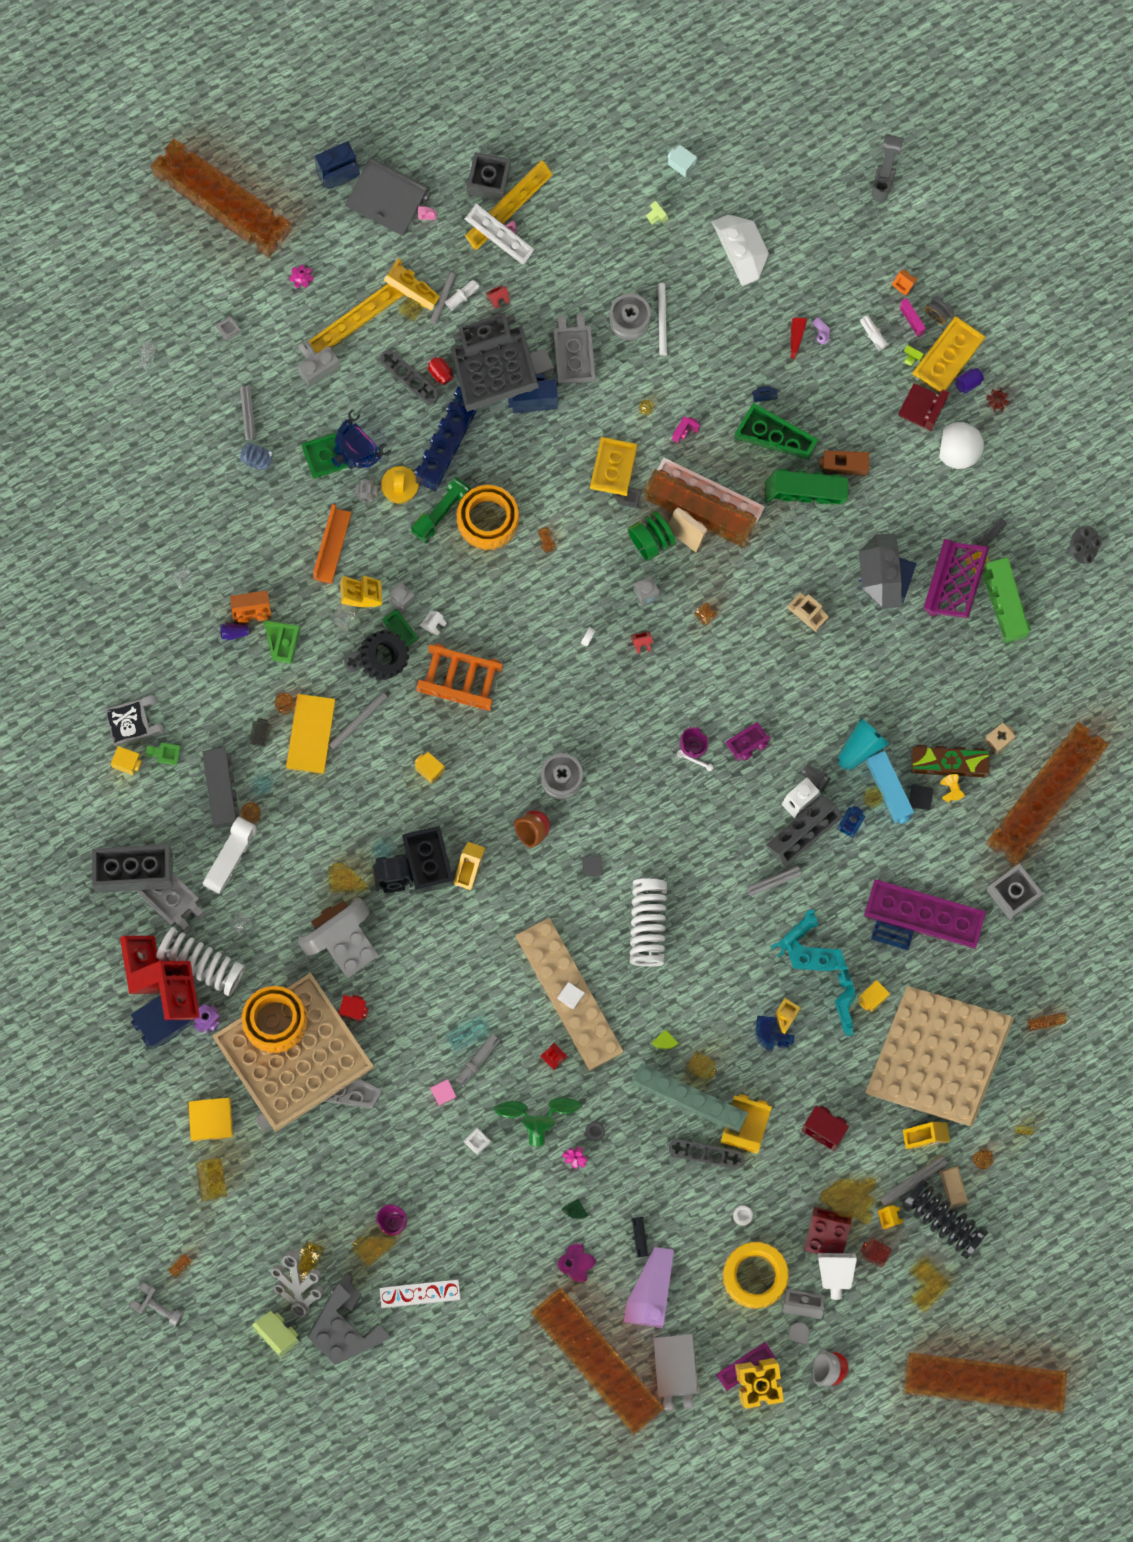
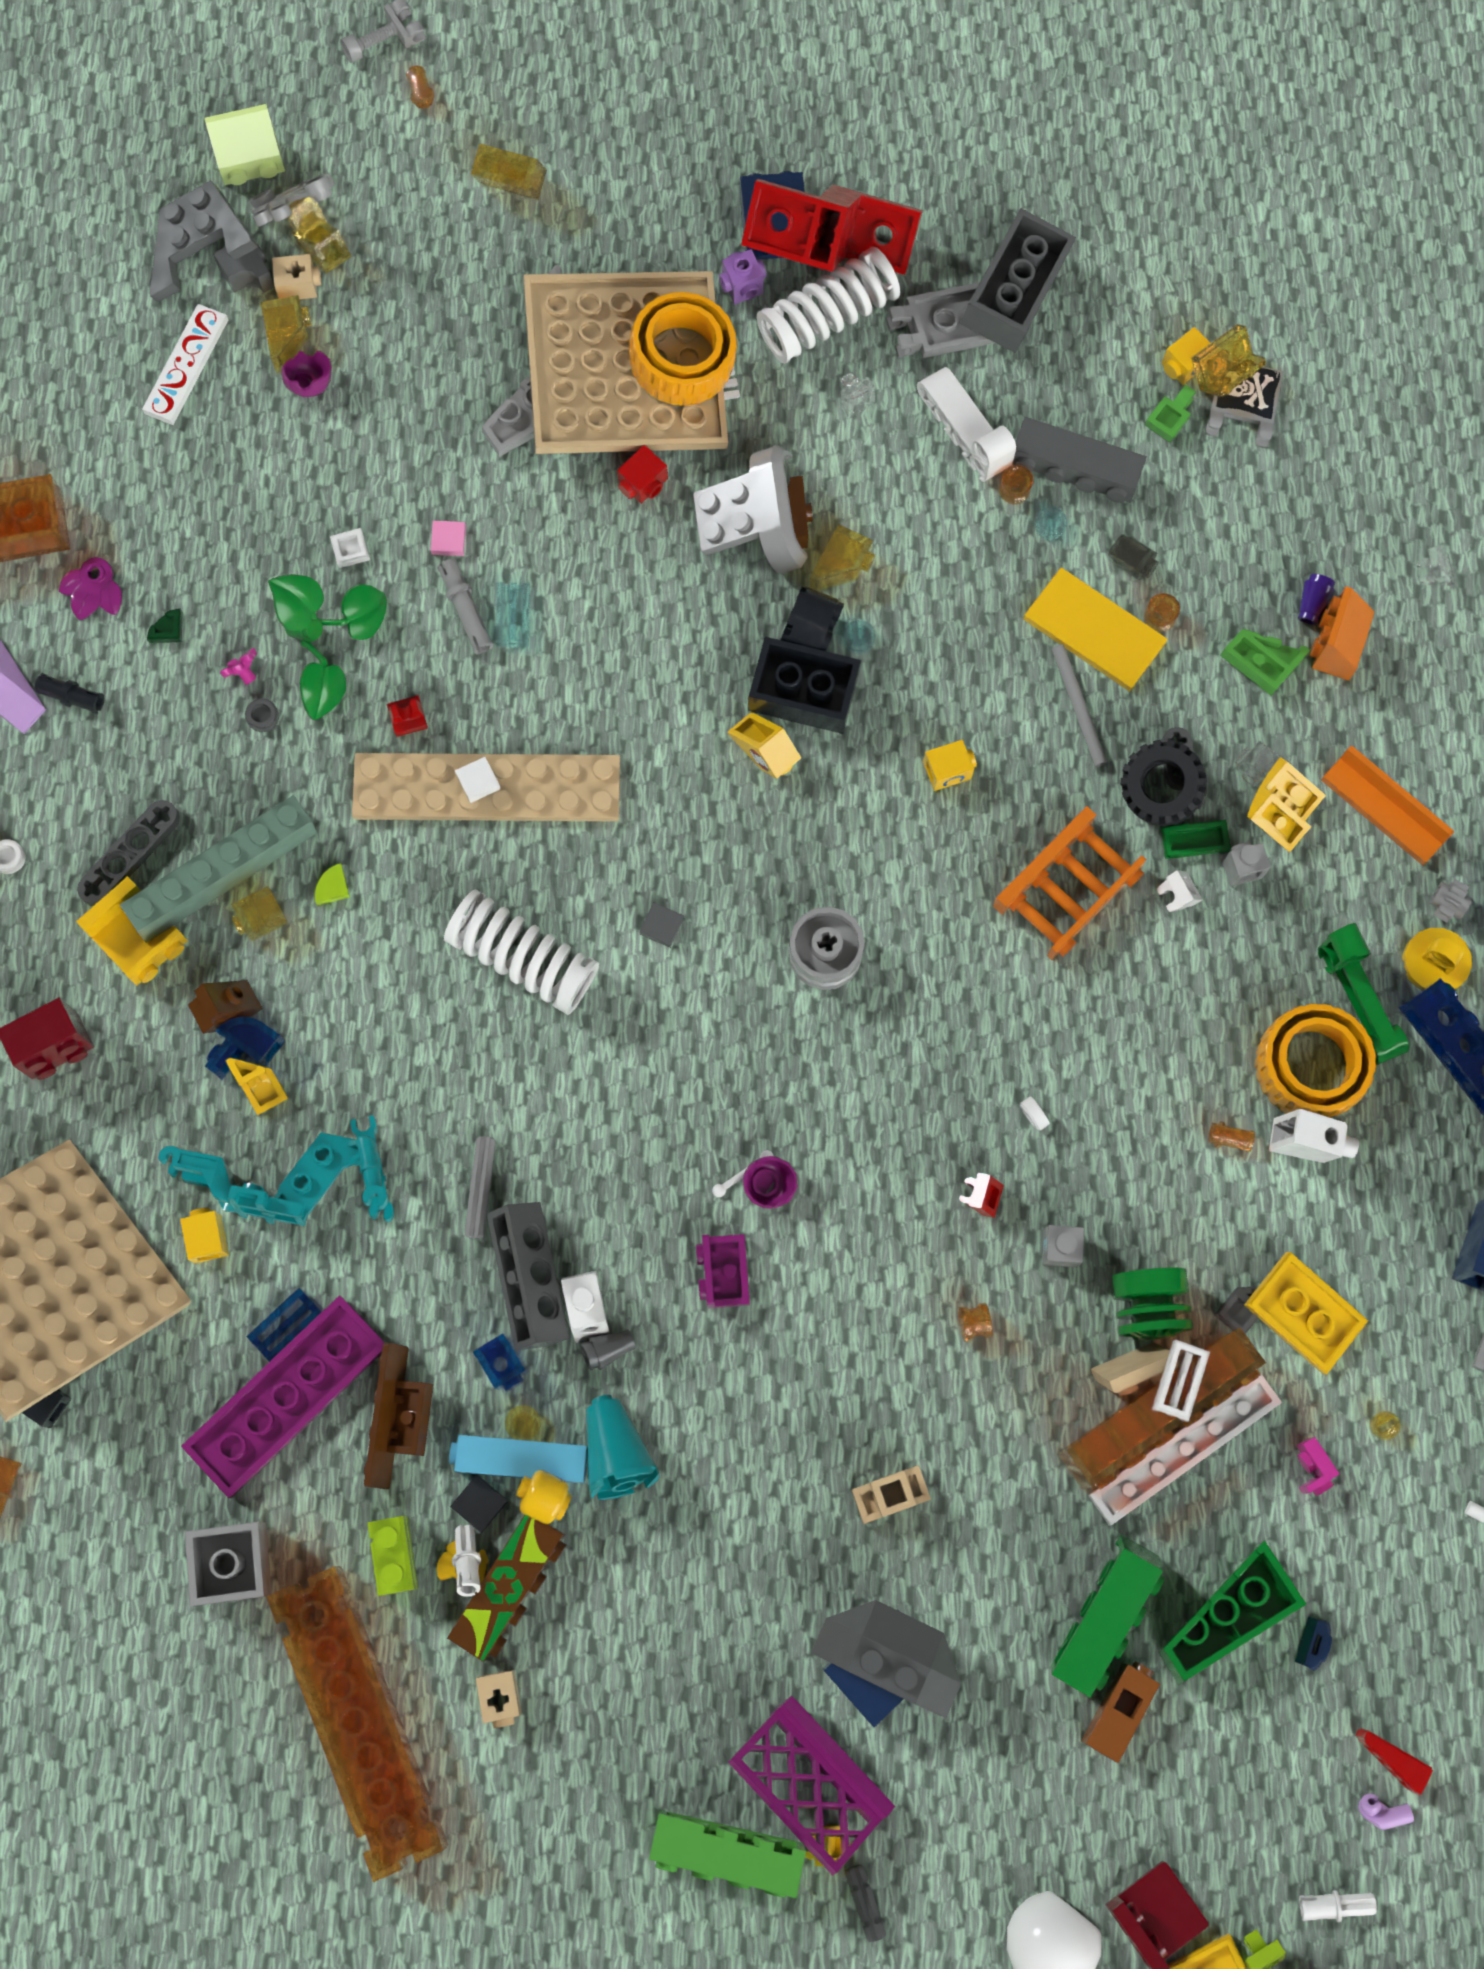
camera: 120 degrees right, 0 degrees up
(123, 735) = (1226, 362): none -> clear yellow bracket
(210, 1119) = (597, 219): yellow slope -> none
(337, 1270) = (296, 276): none -> tan brick
(527, 501) = (1311, 1137): none -> white torso
(532, 828) = (770, 865): dark orange piece -> none
(669, 497) = (1167, 1376): none -> white tile
(757, 1054) = (222, 1002): none -> reddish brown brick
(902, 762) = (544, 1497): none -> yellow head
(902, 854) = (398, 1417): none -> reddish brown bracket
(949, 785) = (466, 1561): none -> white axle
(967, 820) = (392, 1555): none -> lime brick

